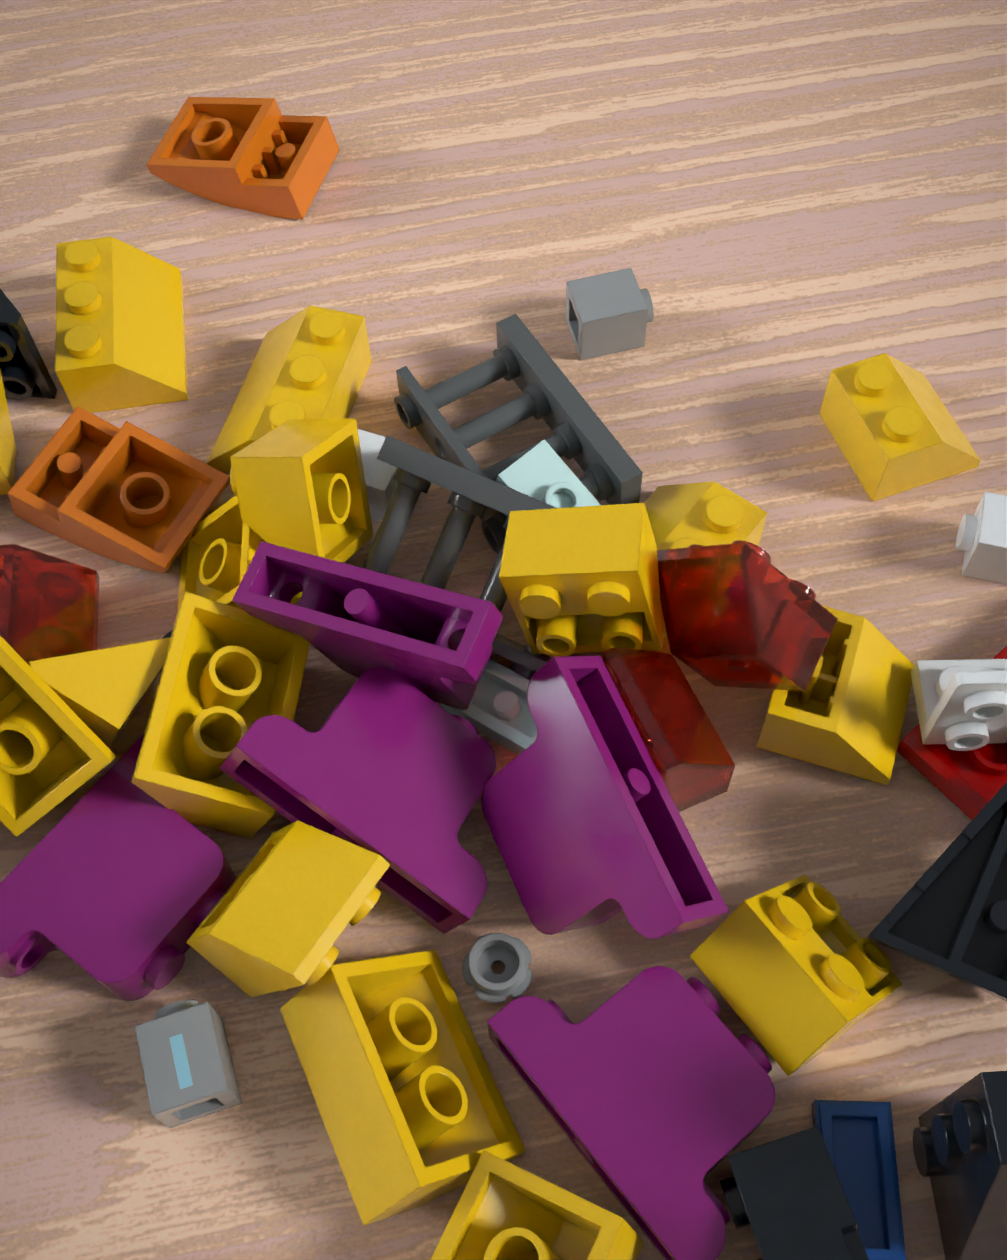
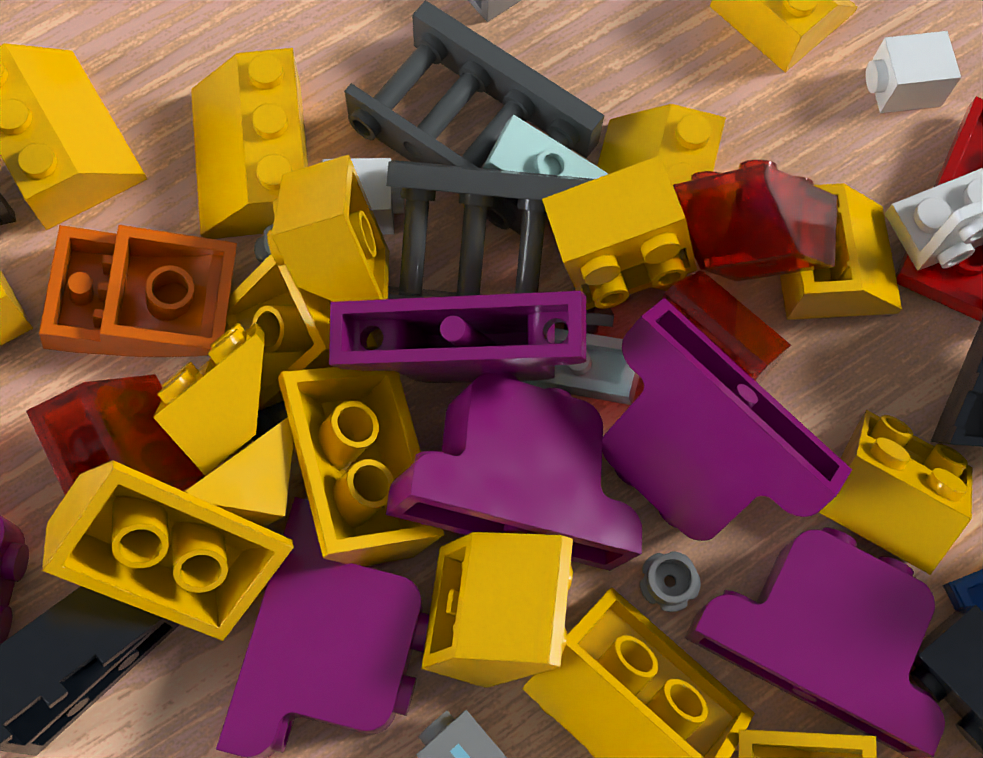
camera: 30 degrees left, 10 degrees up
(125, 598) = (215, 406): none -> yellow slope

